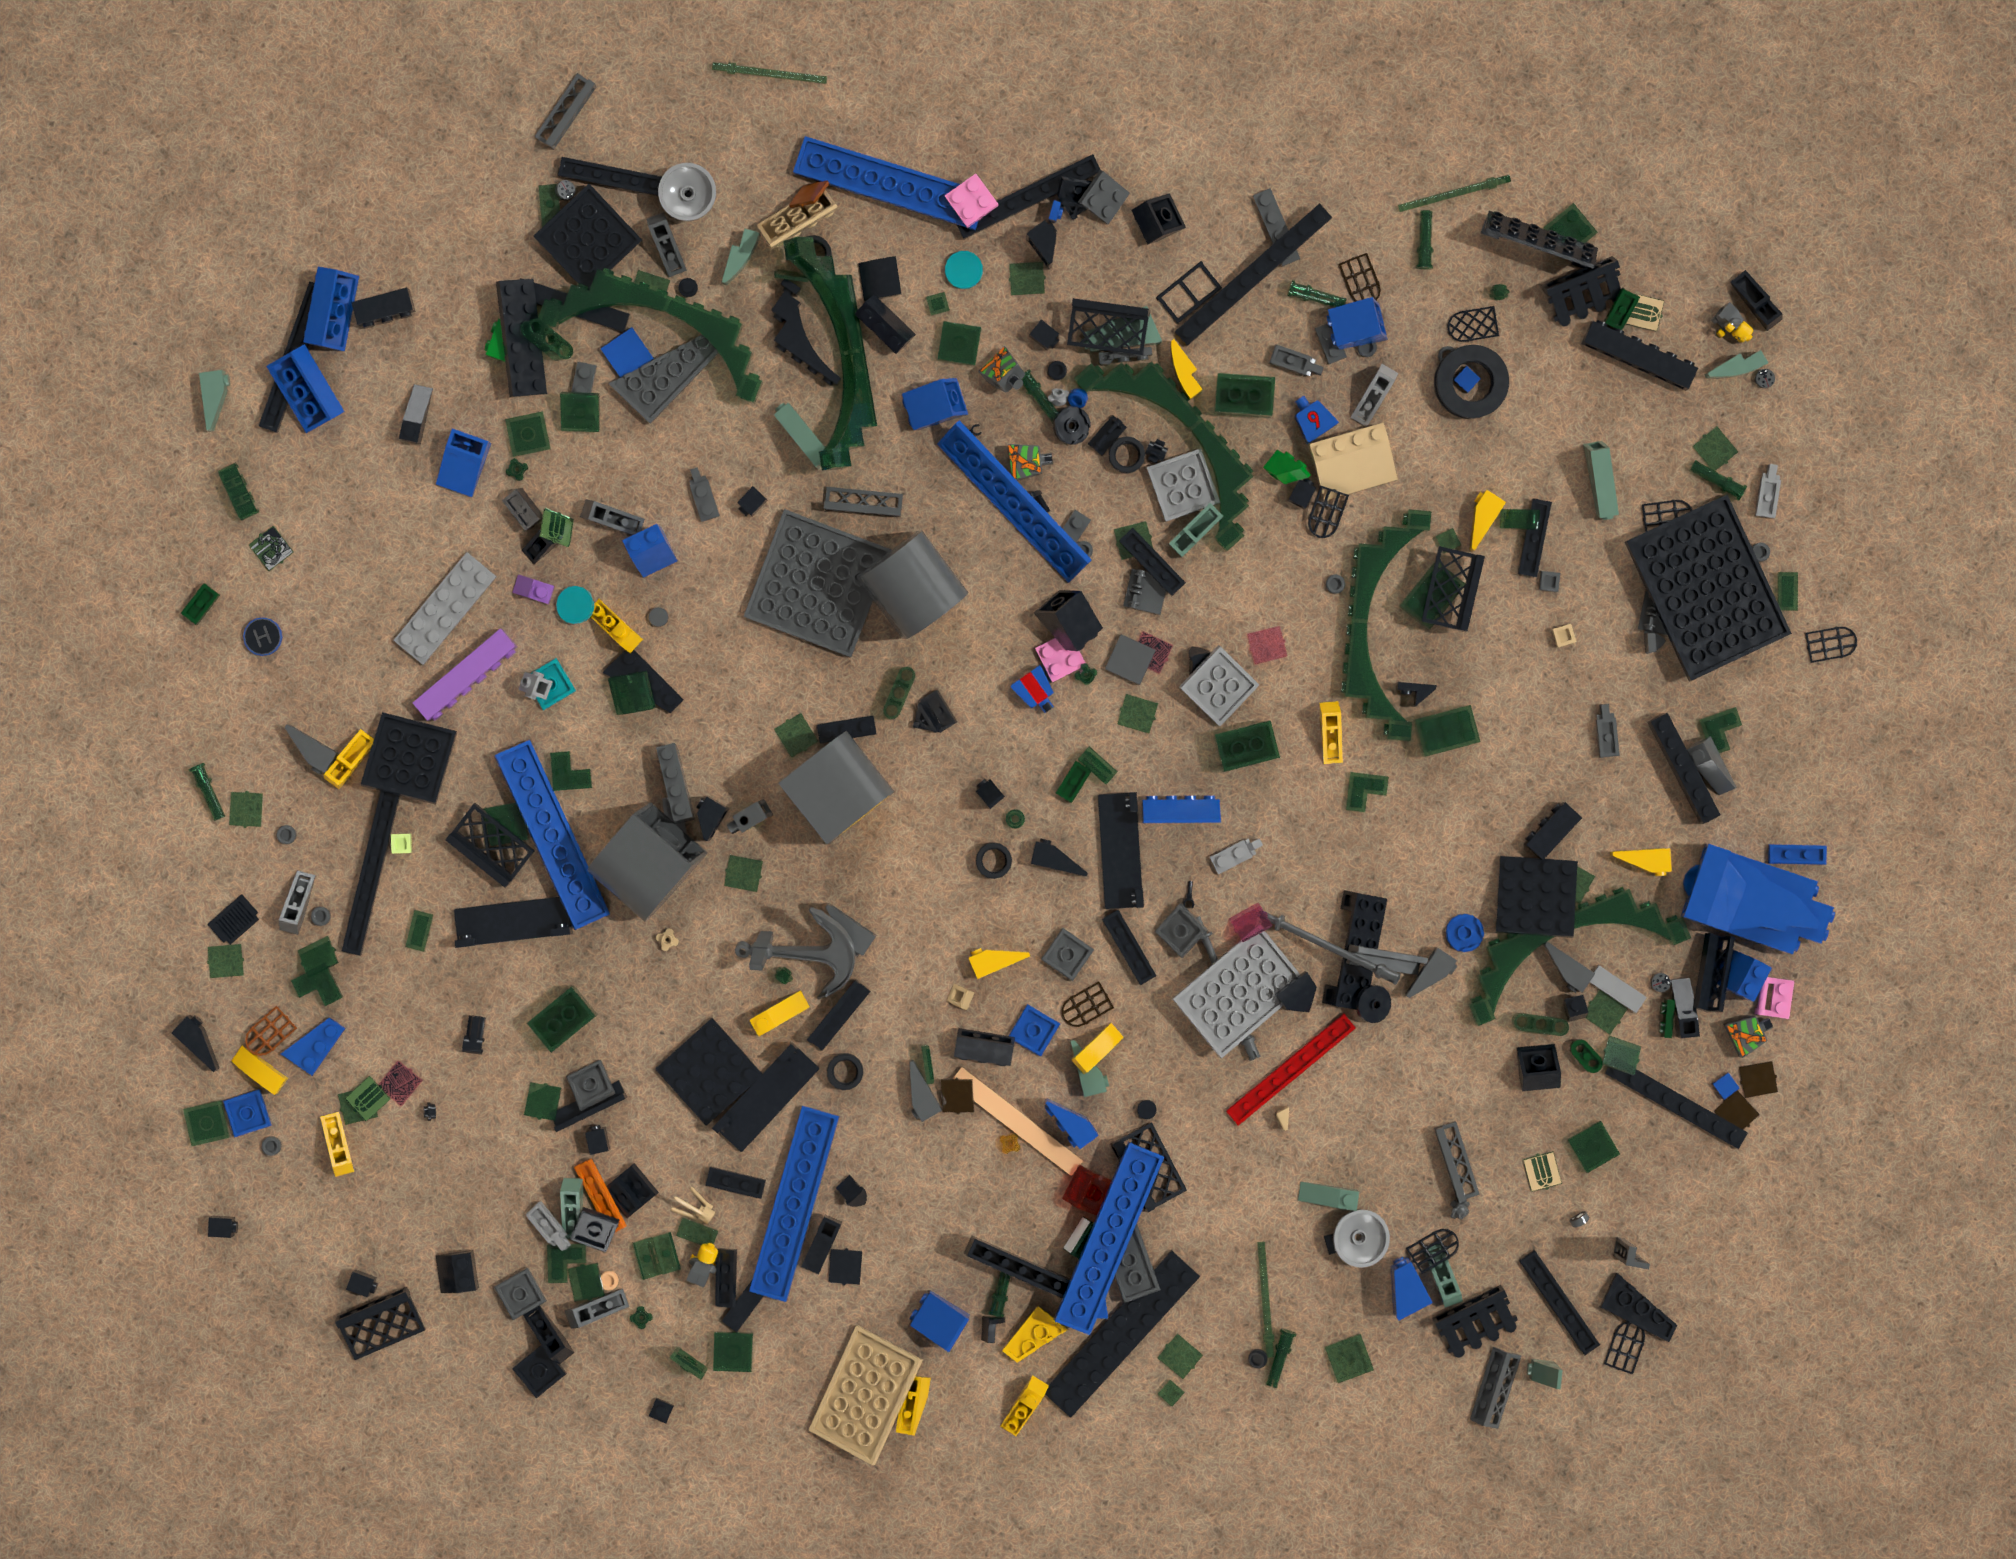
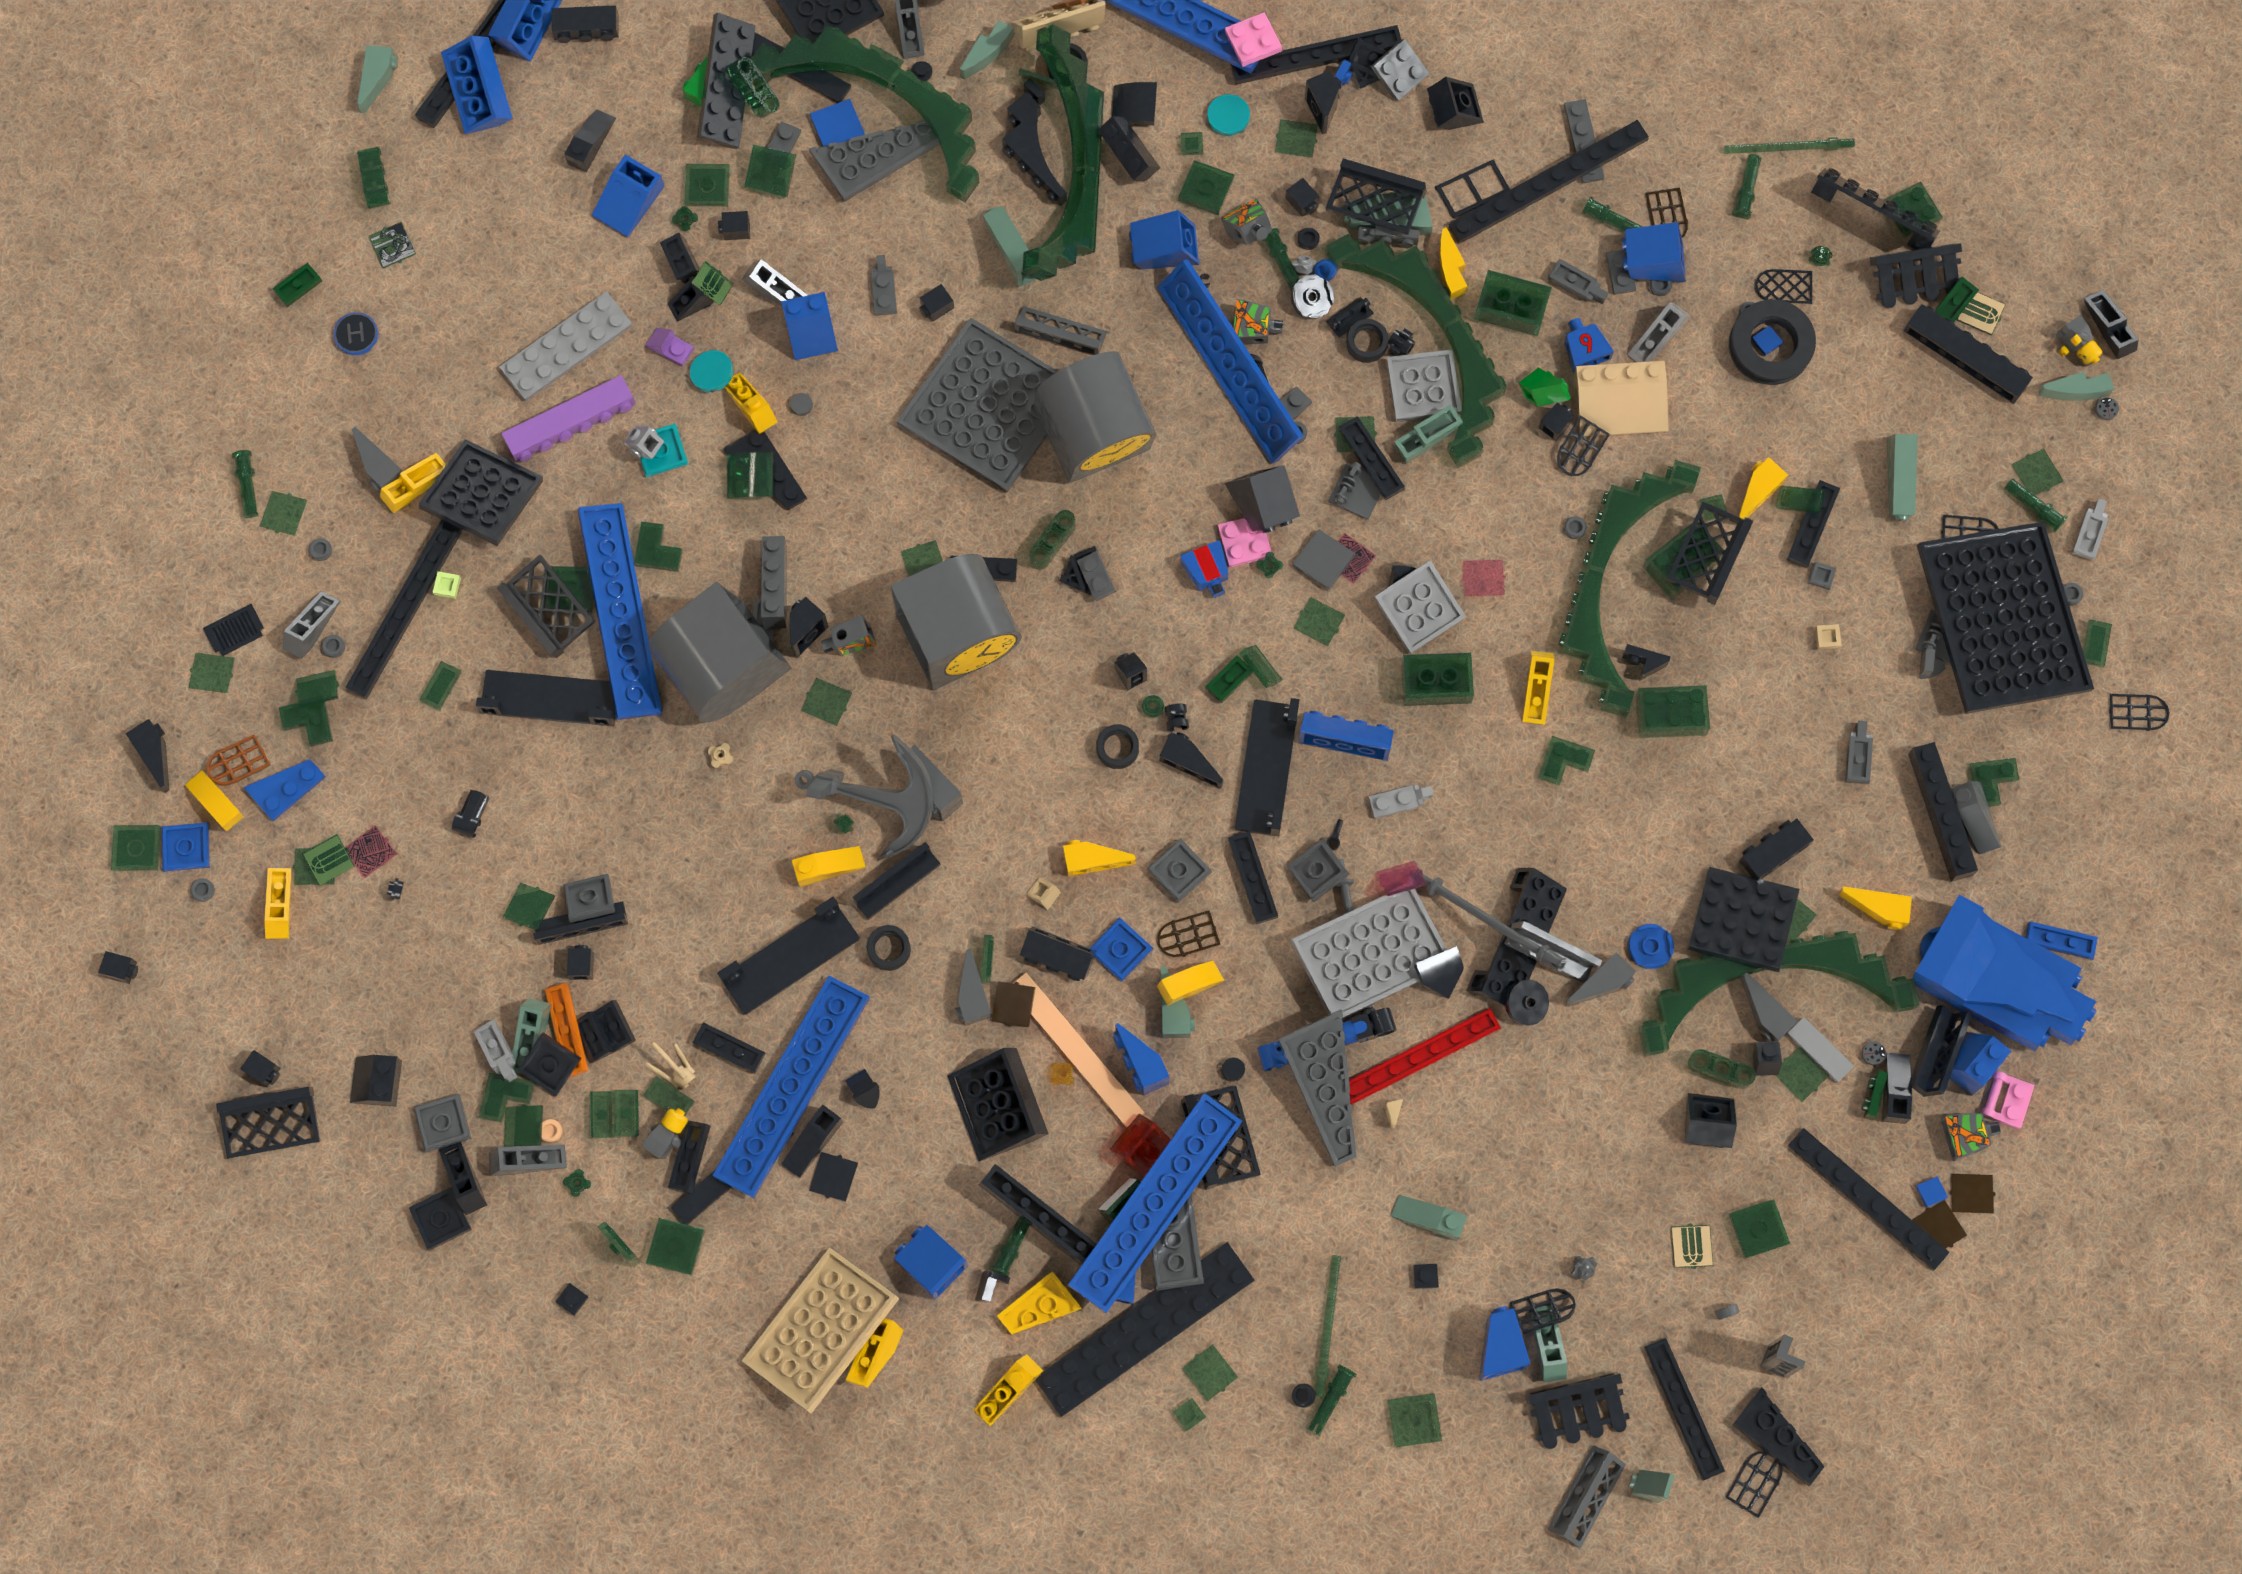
camera: 10 degrees right, 15 degrees down
(561, 468) = (734, 225): none -> black brick
(562, 1019) = (576, 815): clear green brick -> none
(709, 1071) = (730, 914): black plate -> none
(943, 717) = (1096, 576): none -> dark grey plate
(964, 1180) = (997, 1103): none -> black slope
(1037, 820) = (1176, 716): none -> black wheel
(1218, 1071) = (1359, 1029): none -> piece
(1220, 1104) = (1321, 1072): none -> dark grey wing
(1369, 1247) = (1473, 1271): light grey dish -> none
(1450, 1164) = (1583, 1210): dark grey fence -> none
(1586, 1055) = (1771, 1118): dark green plate -> none
(1621, 1055) = (1812, 1127): clear green piece -> none

